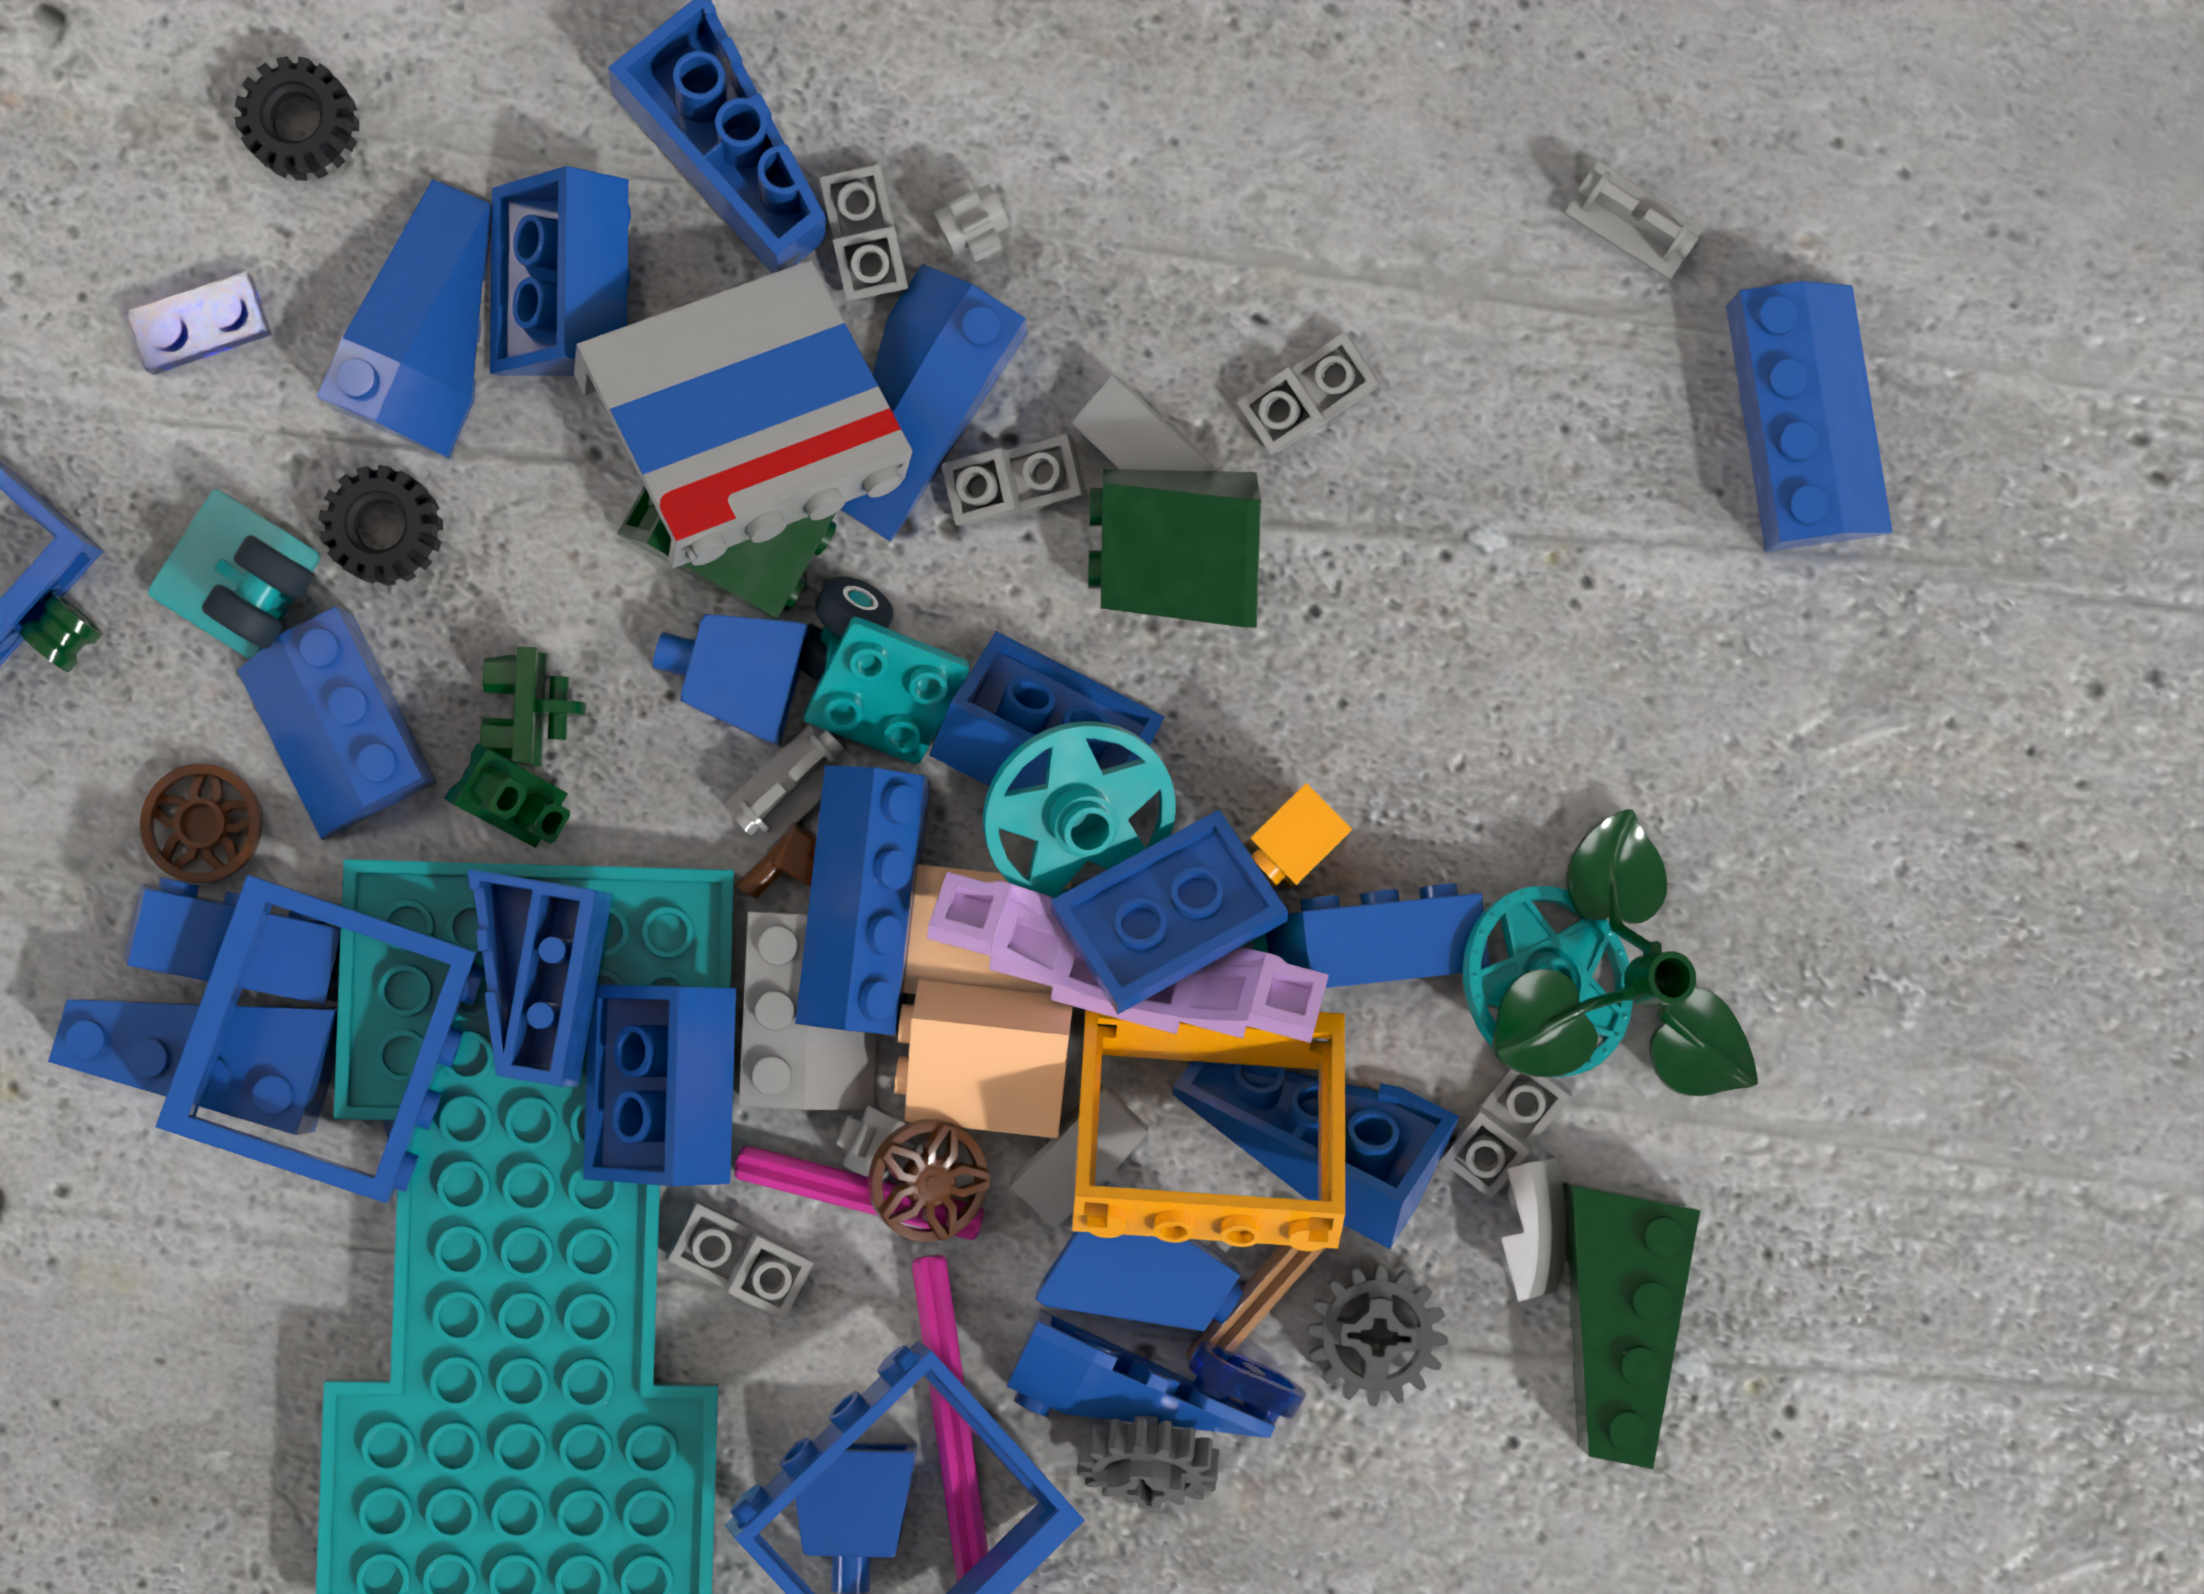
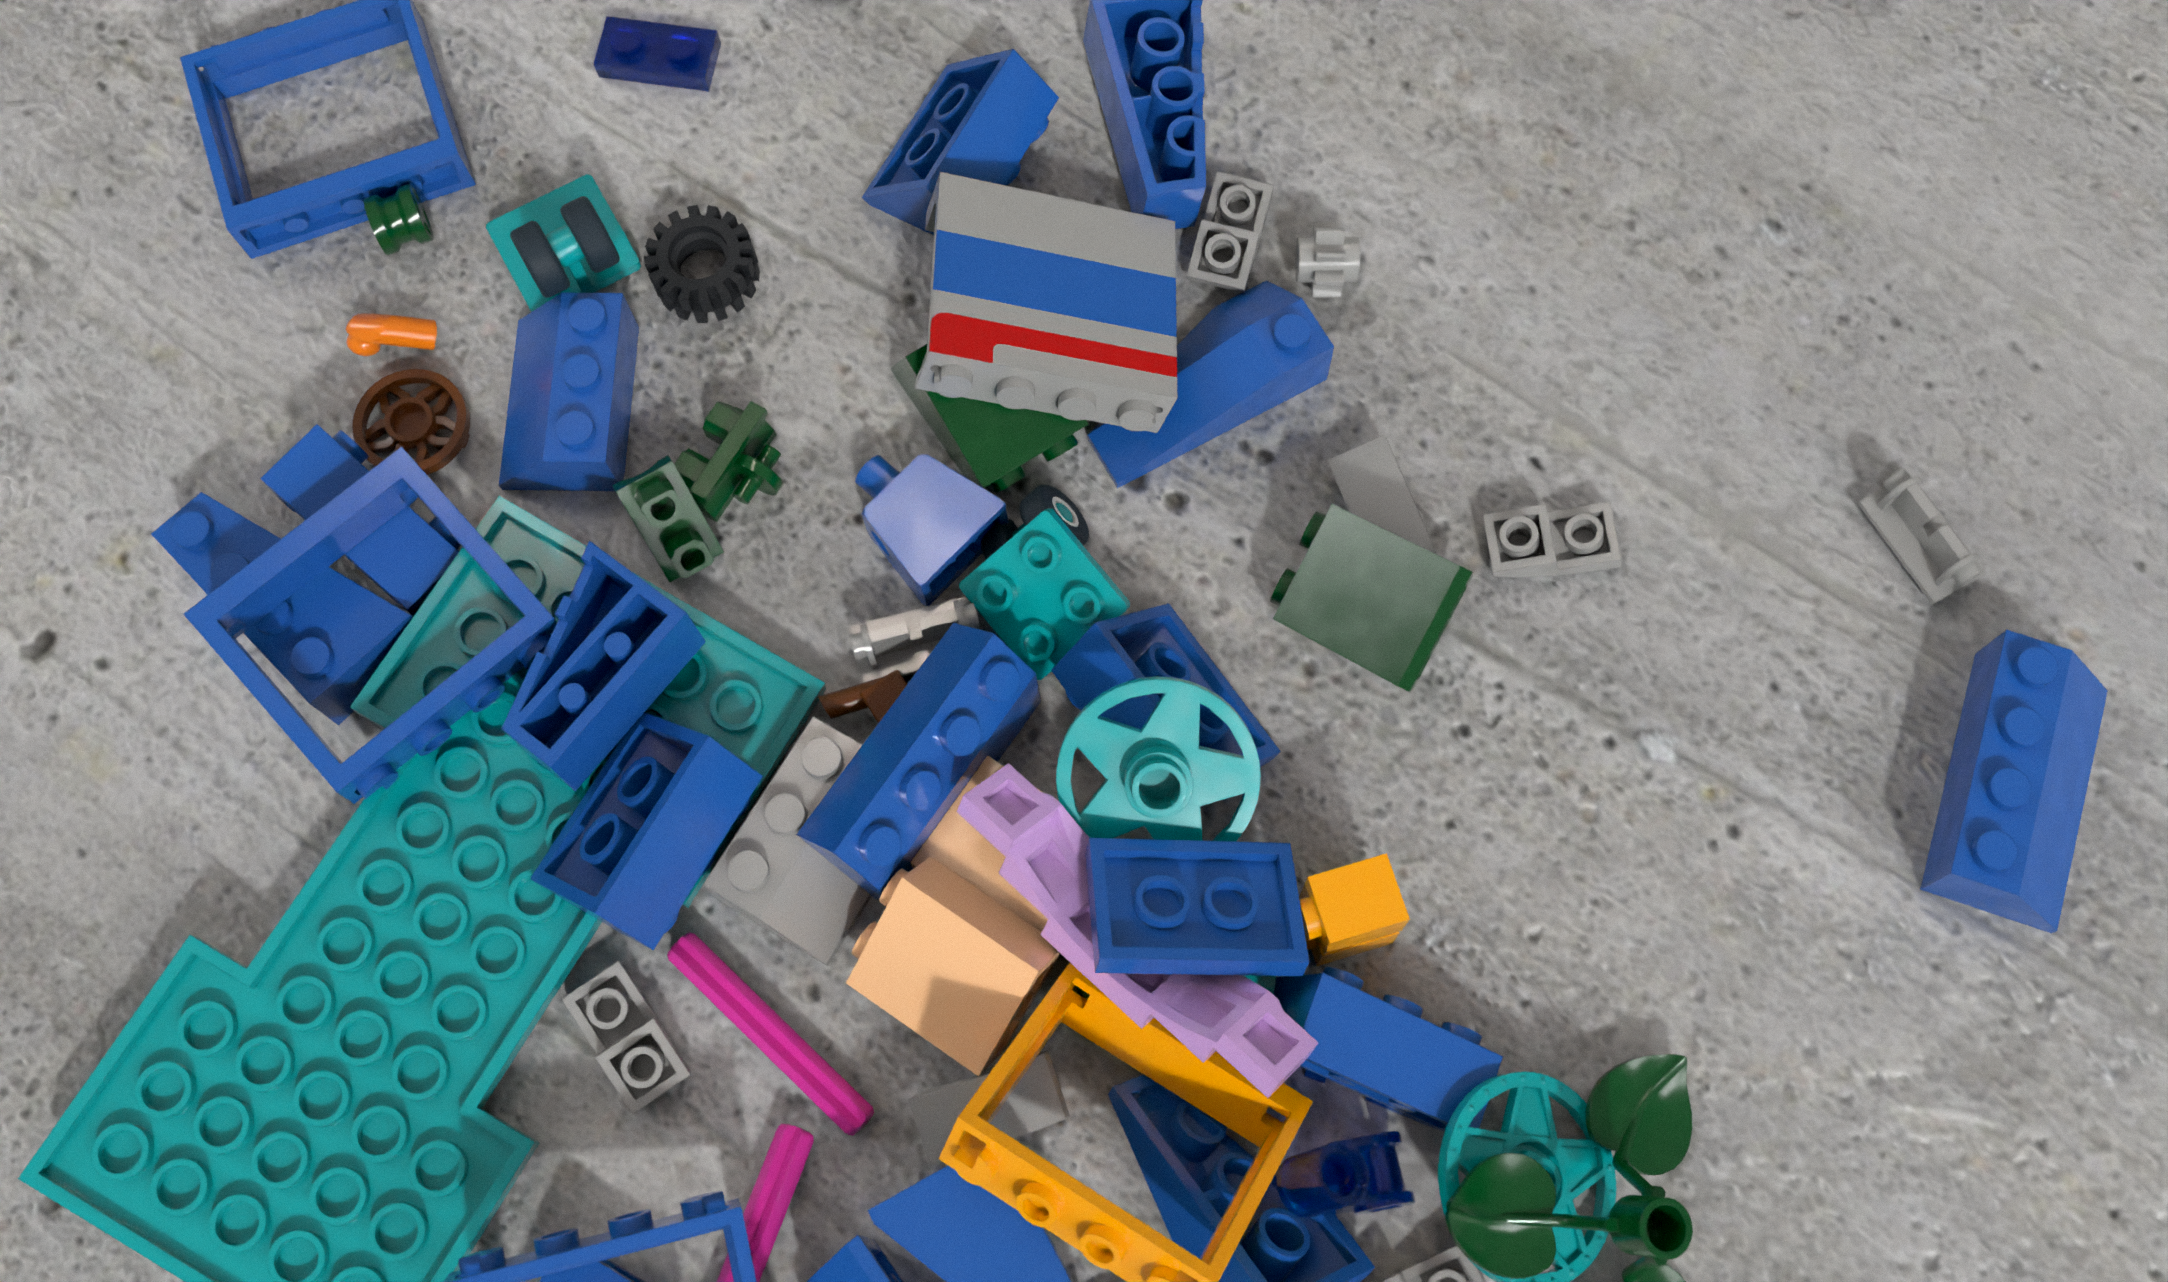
camera: 30 degrees right, 15 degrees down
(109, 755) = (370, 330): none -> orange arm
(417, 332) = (815, 137): blue wedge -> none
(865, 1136) = (809, 993): light grey gear -> none
(928, 1180) = (835, 1049): reddish brown wheel -> none
(1014, 480) = (1250, 488): light grey slope -> none
(1406, 1052) = (1345, 1177): none -> clear blue piece

